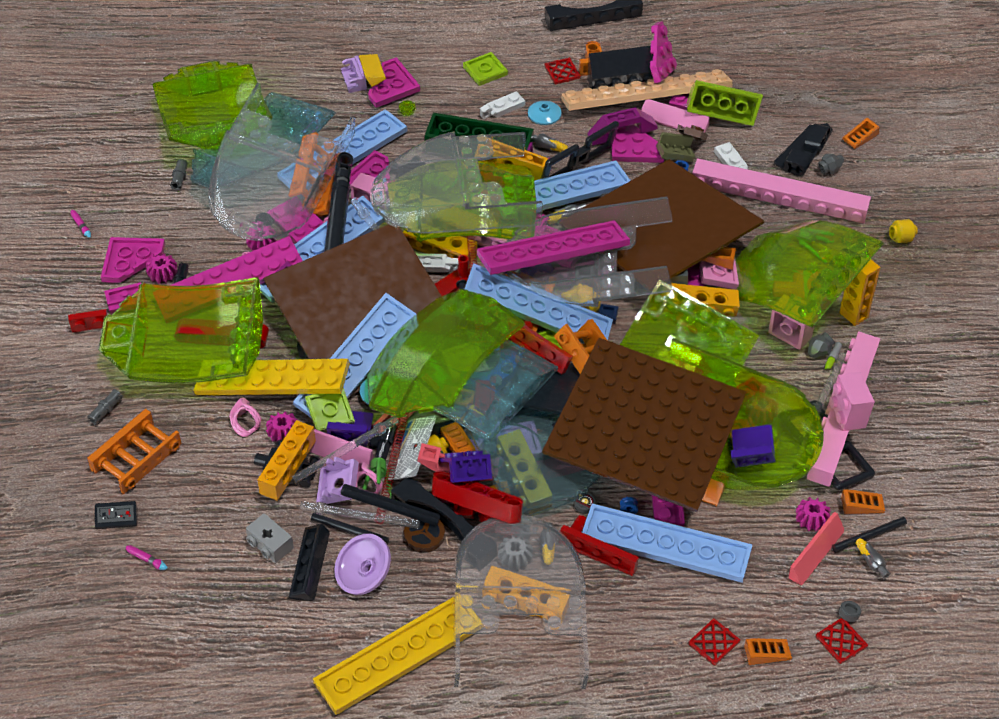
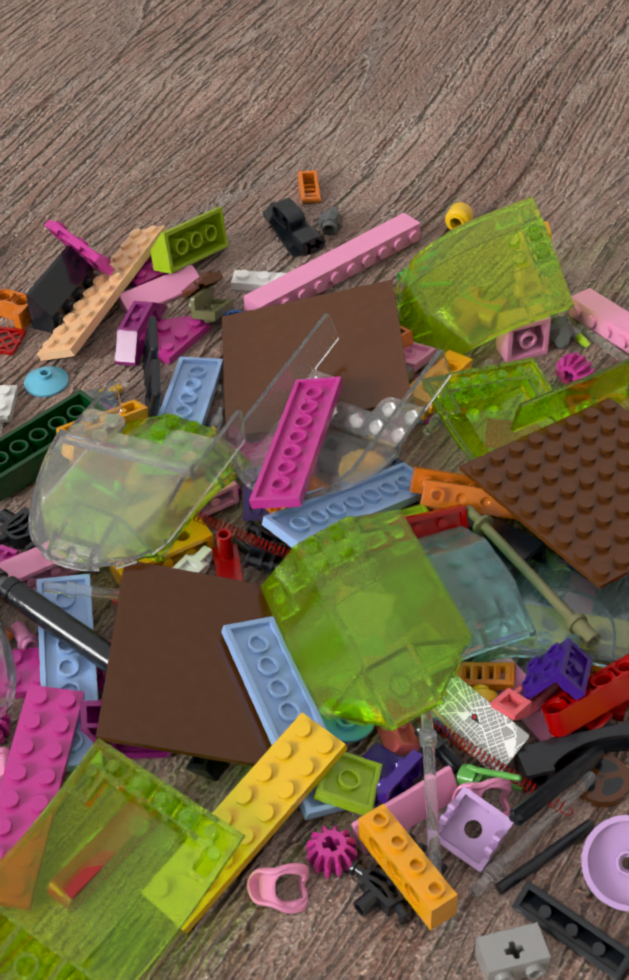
camera: 55 degrees left, 5 degrees down
(510, 455) = (576, 622): none -> olive bar
(779, 366) = (573, 367): none -> dark pink gear

